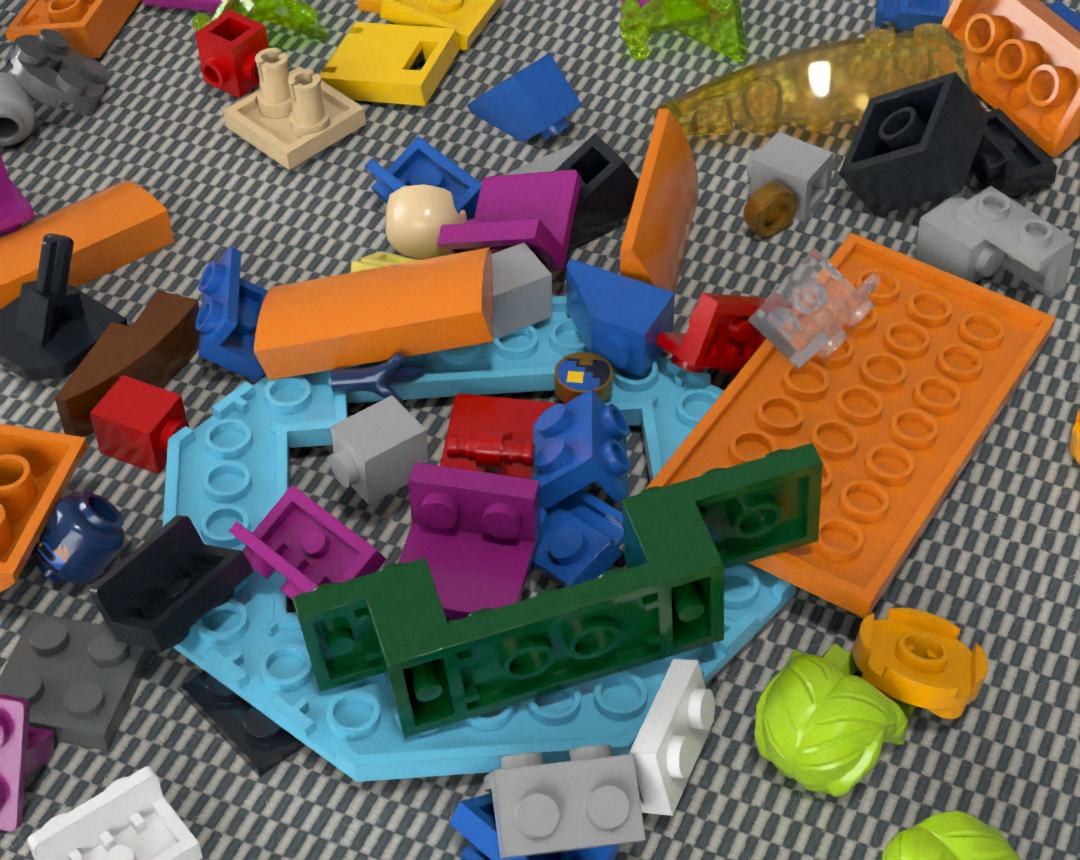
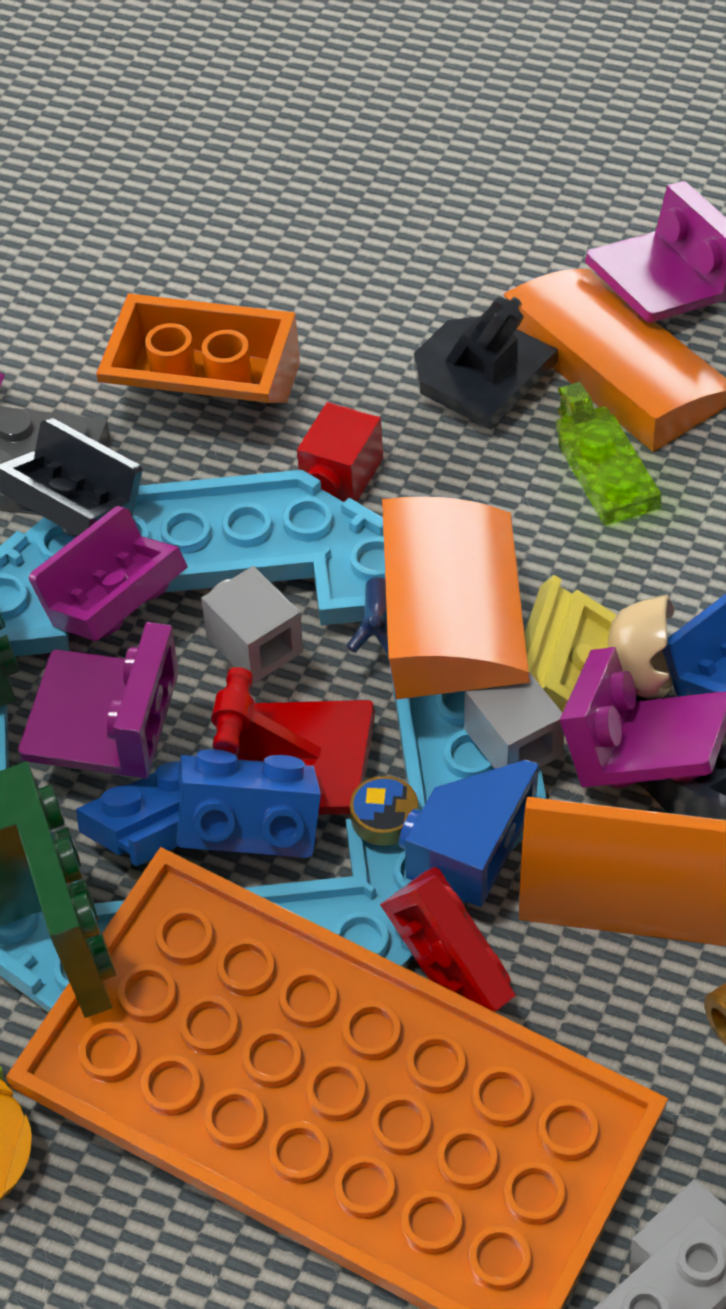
camera: 90 degrees right, 5 degrees up
(80, 539) = (180, 410): dark blue head -> none
(149, 351) = (433, 437): reddish brown slope -> none
(171, 265) = (603, 458): none -> clear neon green hinge
(229, 316) = (513, 485): blue bracket -> none
(811, 309) = (461, 1017): clear bracket -> none

